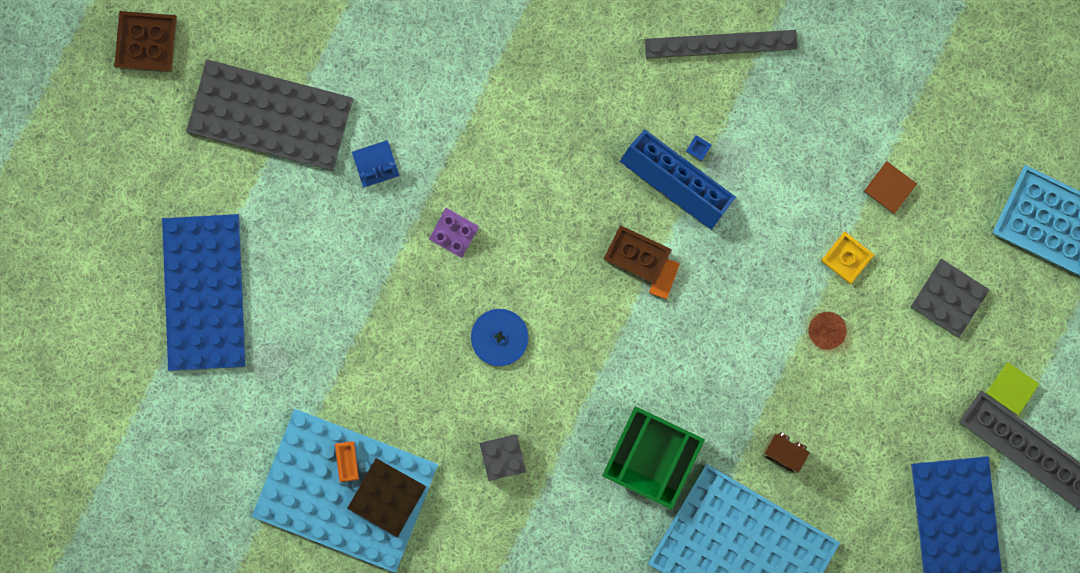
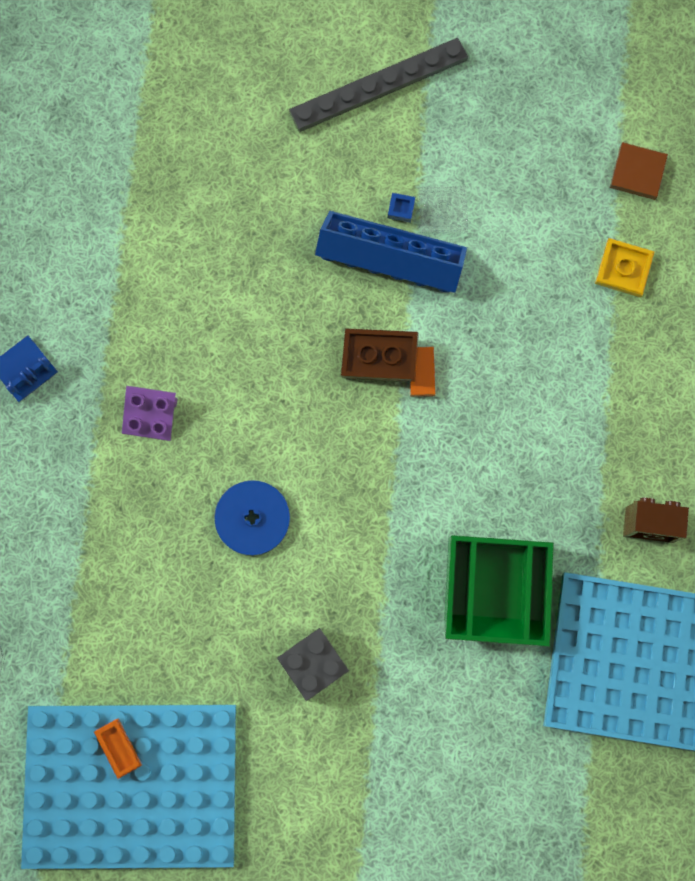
camera: 25 degrees left, 5 degrees down
(386, 497) = (185, 774): dark brown plate -> none
(823, 326) = (638, 366): clear red tile -> none

